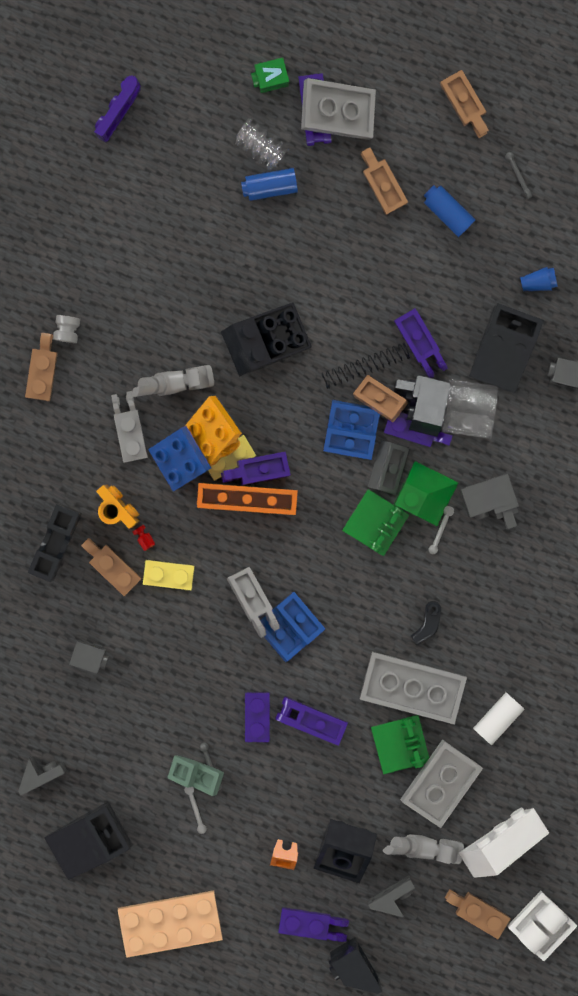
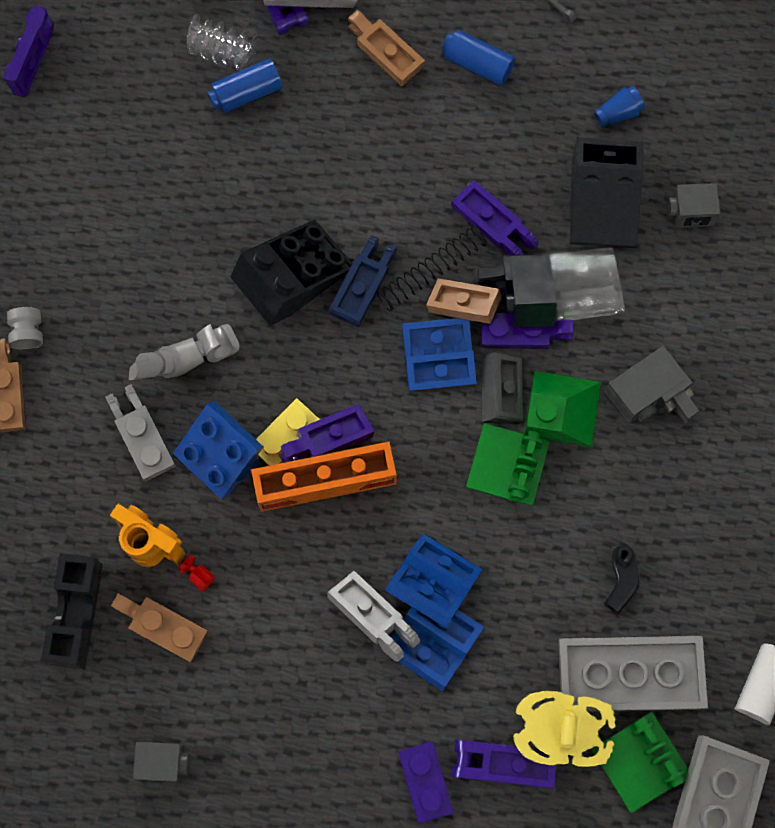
camera: 15 degrees left, 15 degrees down
(168, 575) = (244, 615): light yellow plate -> none
(214, 430) = (256, 398): light orange plate -> none
(301, 588) = (433, 580): none -> blue slope
(312, 363) = (361, 283): none -> dark blue hinge
(355, 711) = (563, 729): none -> light yellow shield
(448, 511) = (600, 423): light grey hinge -> none

